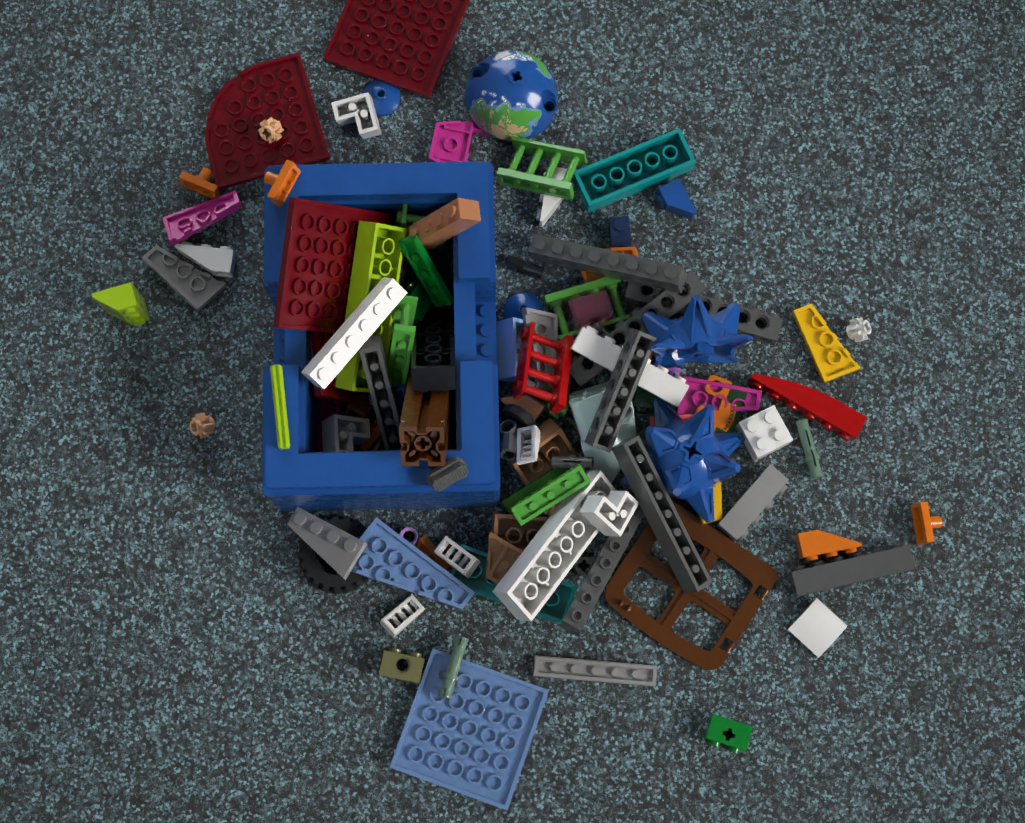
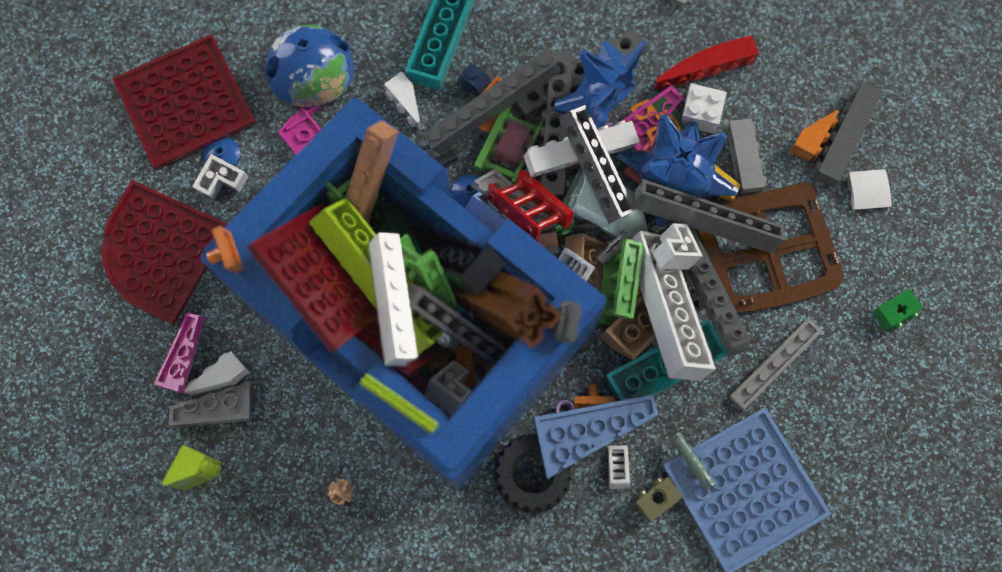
camera: 45 degrees left, 5 degrees down
(201, 183) = (156, 333): orange tile -> none
(270, 130) = (168, 246): light nougat gear -> none
(331, 543) = (523, 468): light grey wing -> none
(426, 271) = (389, 214): green tile -> none
(471, 566) = (631, 386): white slope -> none
(500, 557) = (645, 355): medium nougat wing -> none
(542, 184) = (395, 95): bright green fence -> none
(675, 199) = (487, 26): blue slope -> none
(811, 456) = (736, 89): sand green pin -> none
(826, 351) = (679, 24): yellow wing -> none
(924, 523) = (853, 63): orange tile -> none

